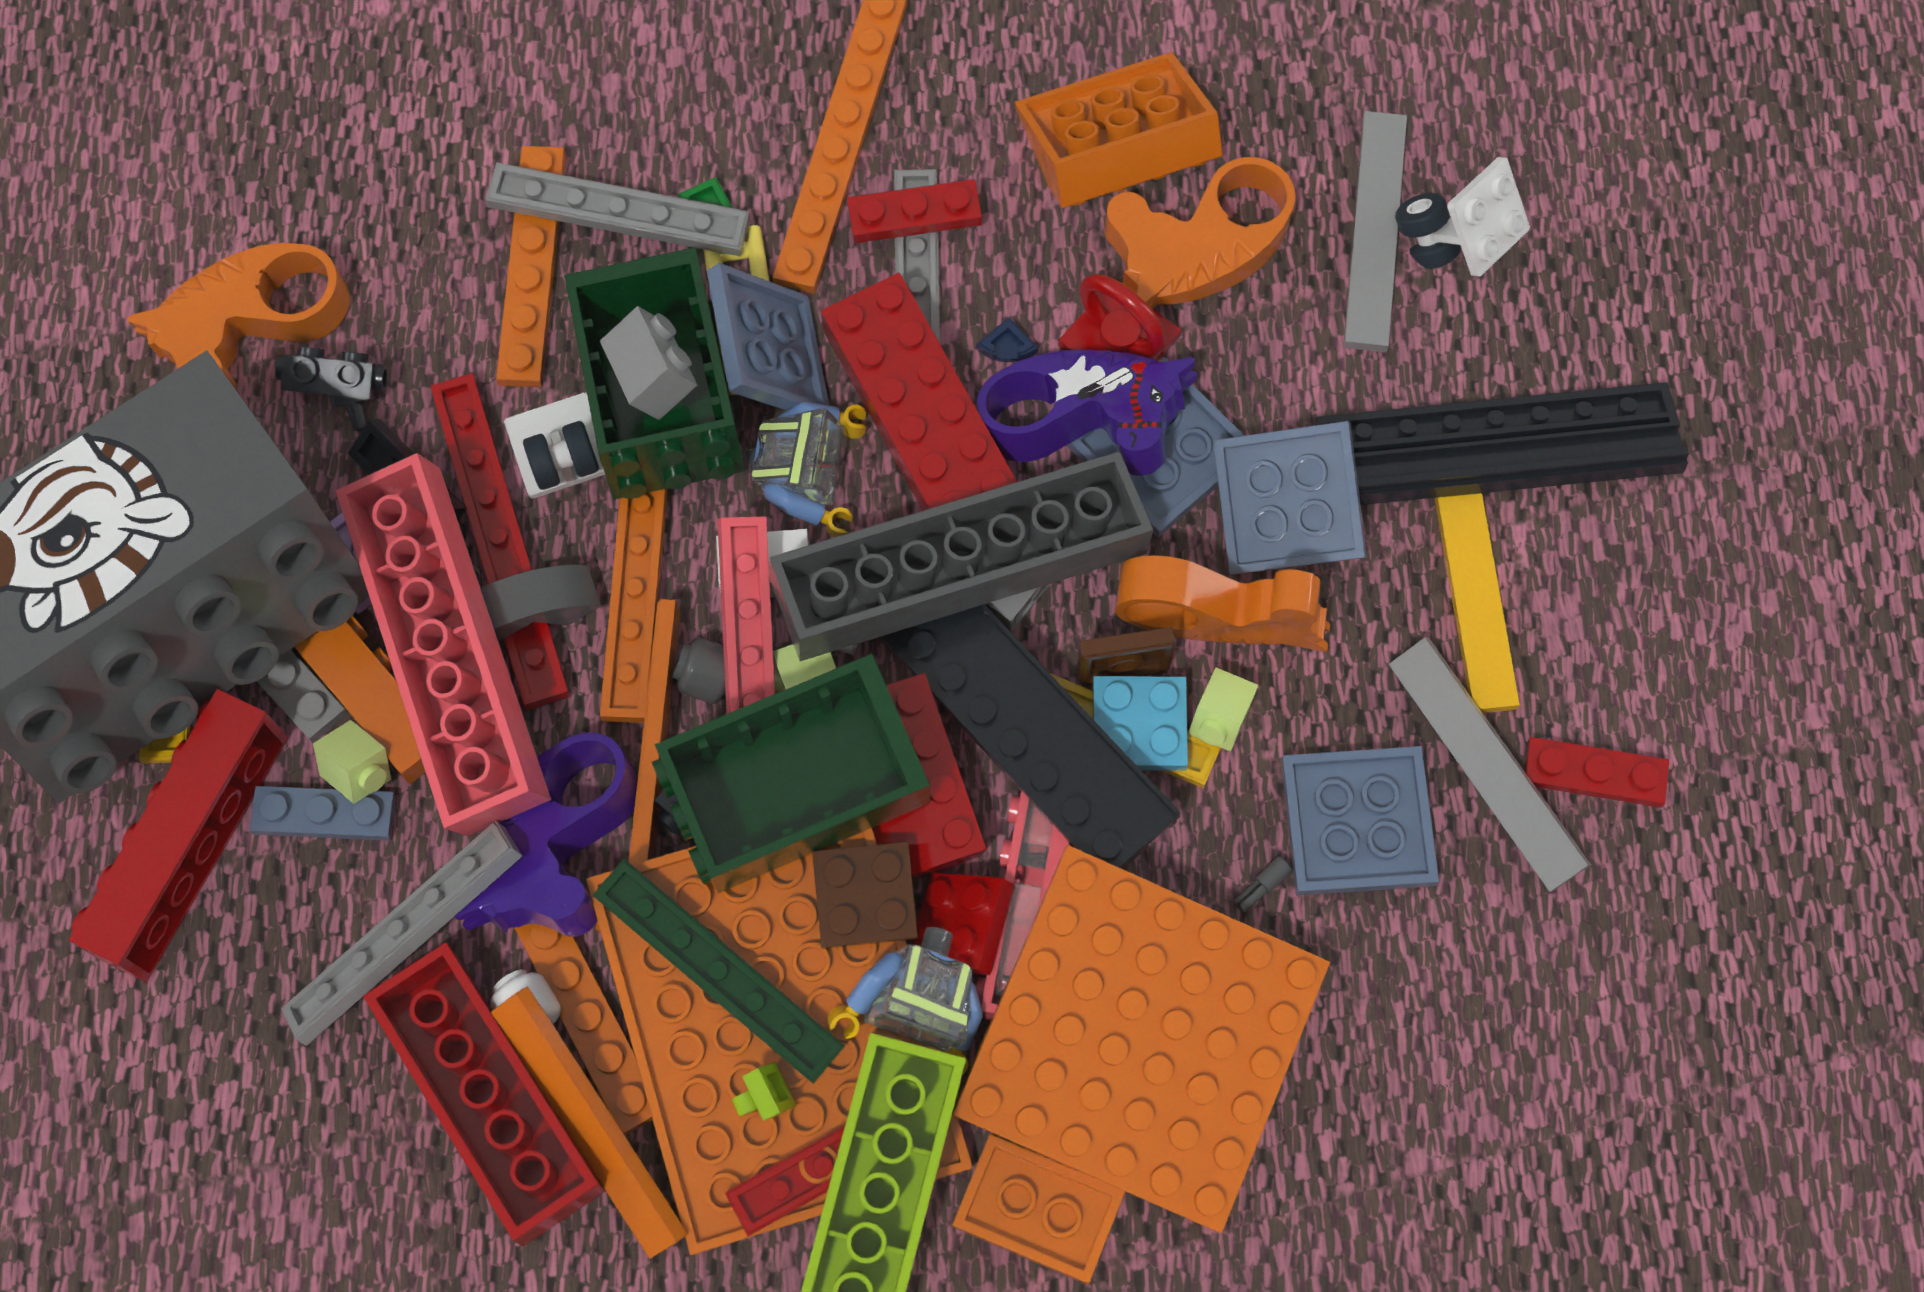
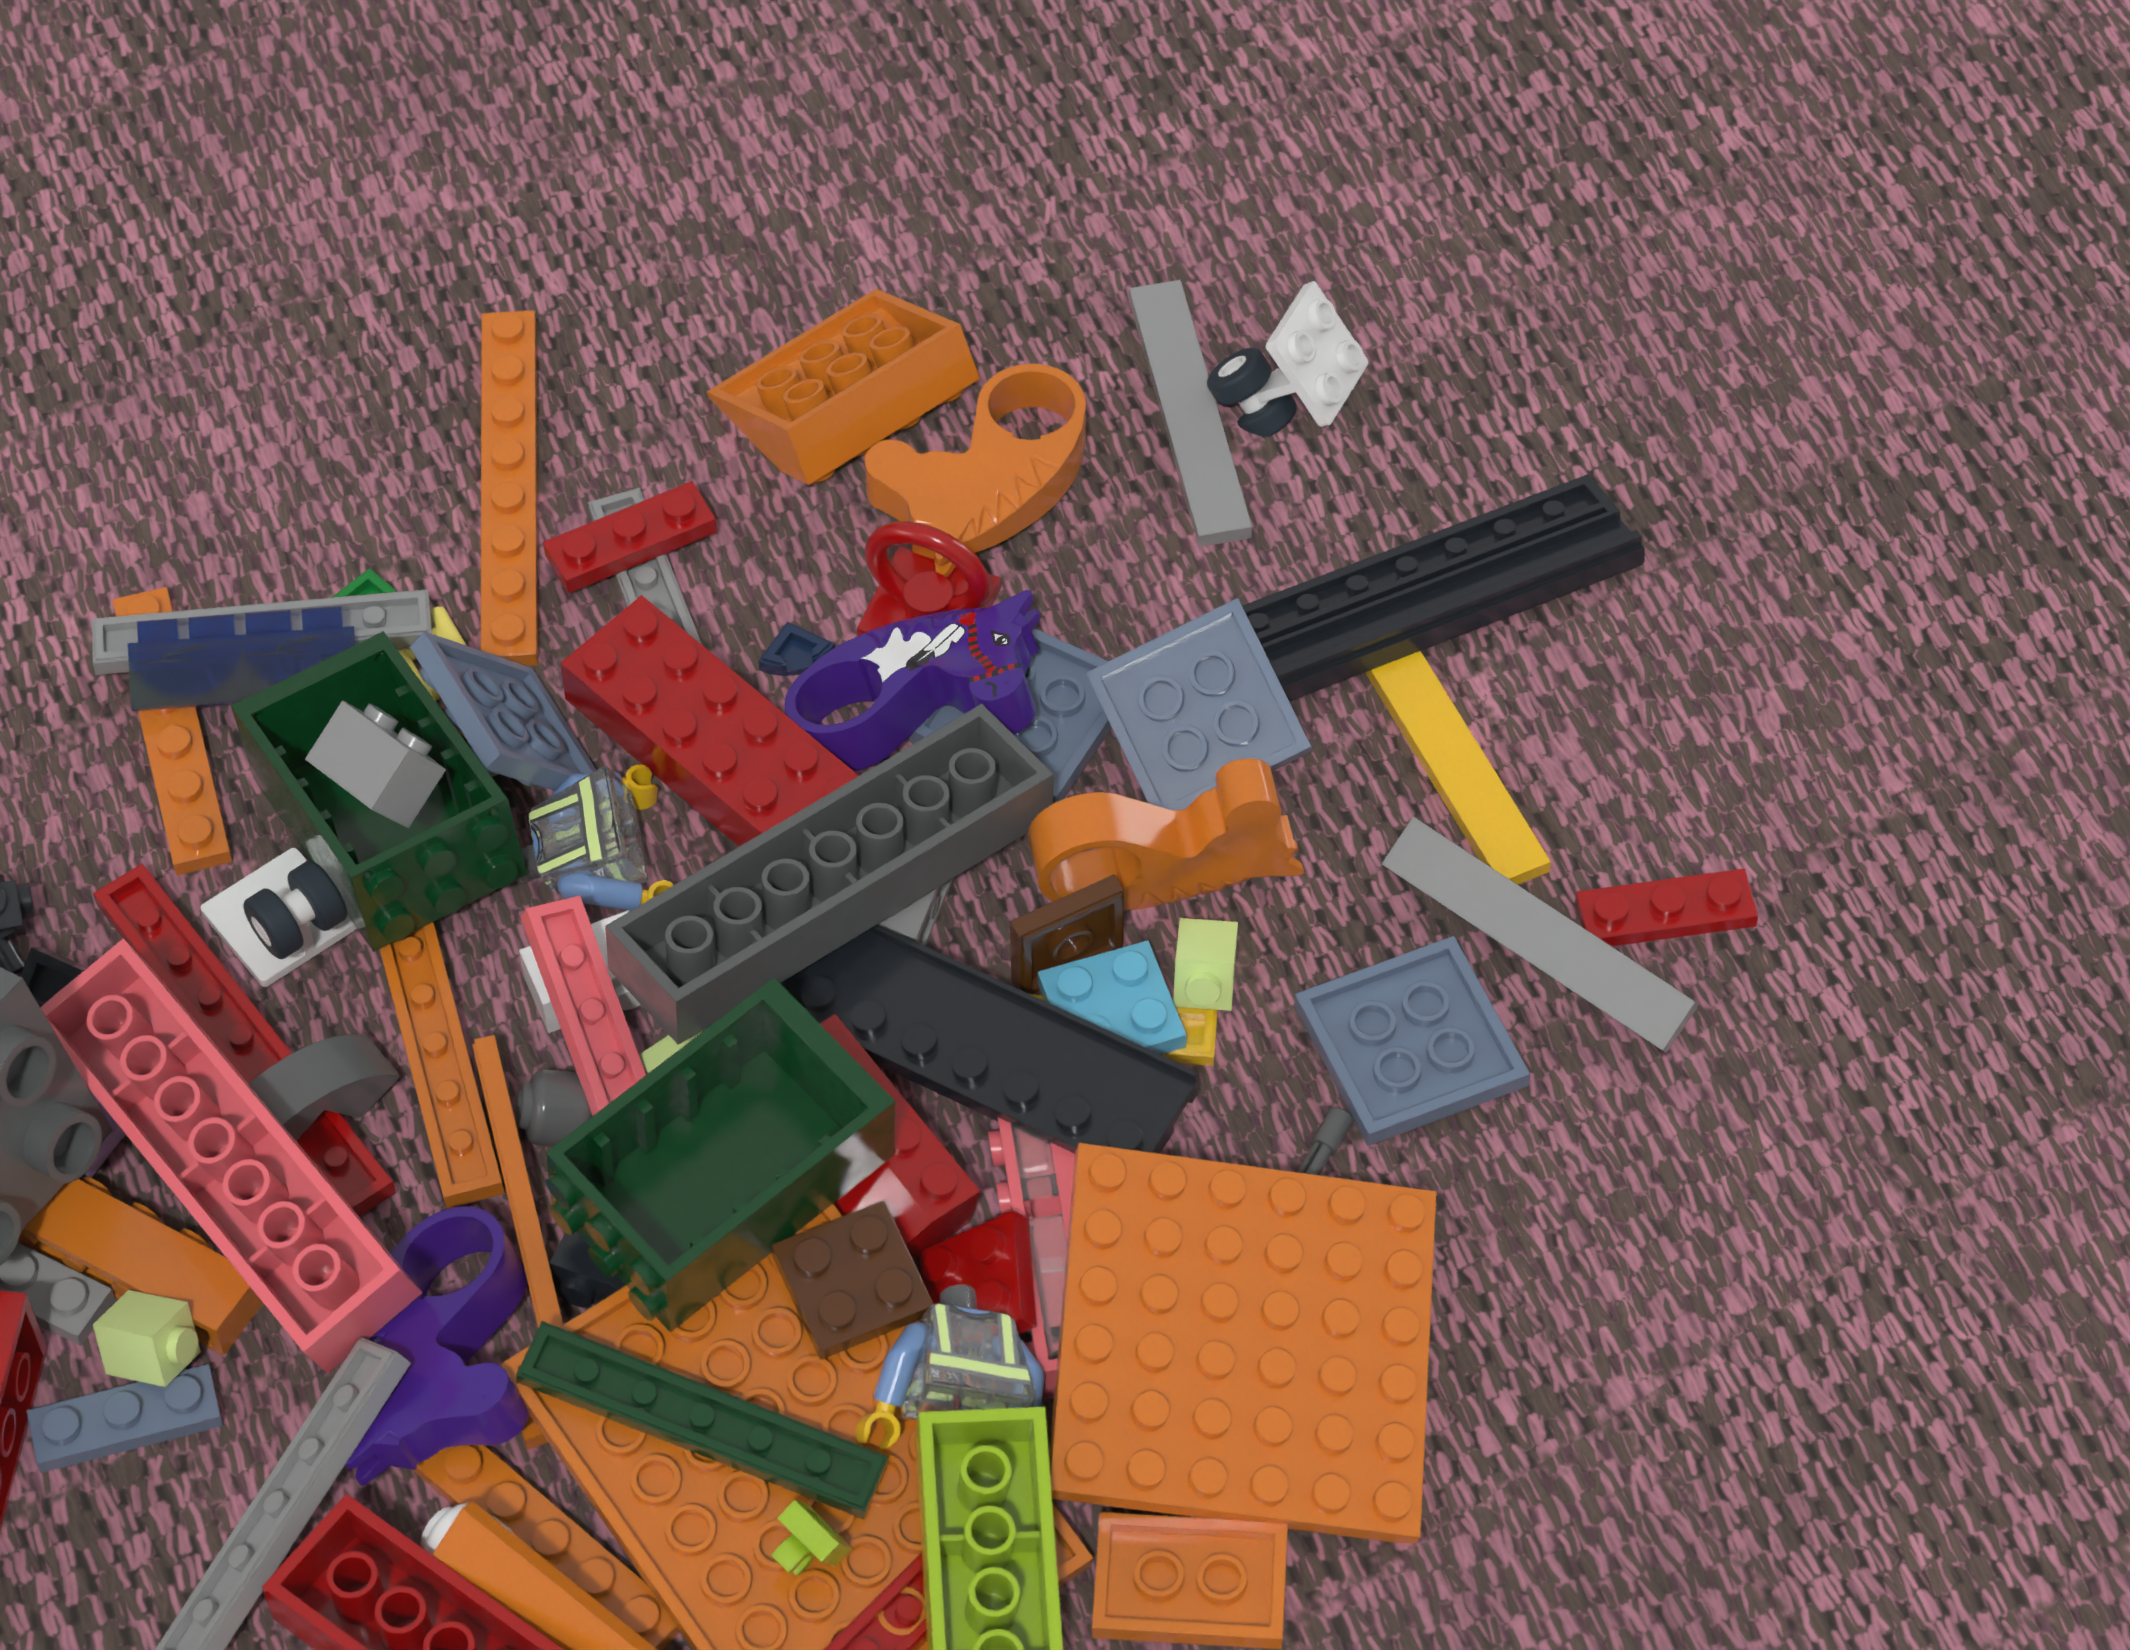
camera: 20 degrees left, 15 degrees down
(581, 233) = (224, 666): none -> clear blue windscreen

